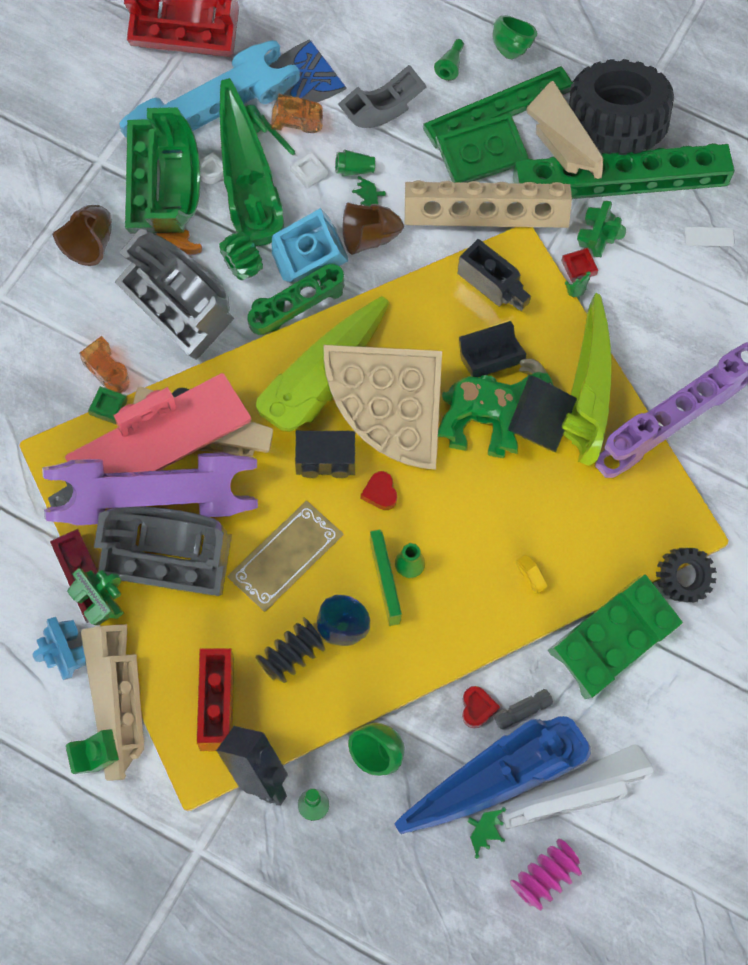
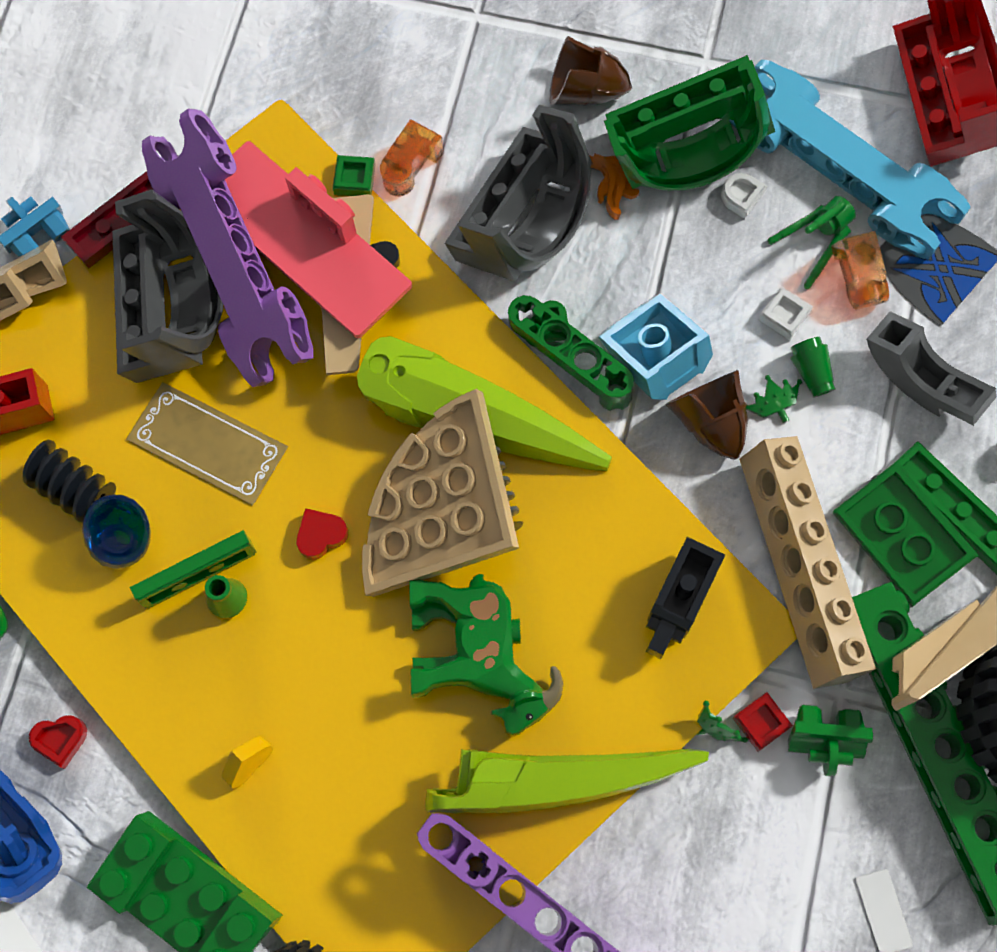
camera: 80 degrees right, 5 degrees up
(101, 590) = (84, 235): green hips -> none
(241, 255) = (610, 262): green gear -> none
(246, 172) = (738, 232): green piece -> none
(325, 453) = (349, 446): black brick -> none
(491, 350) = (566, 624): black bracket -> none
(523, 709) = (65, 799): dark grey axle -> none
(541, 413) = (476, 714): black tile -> none

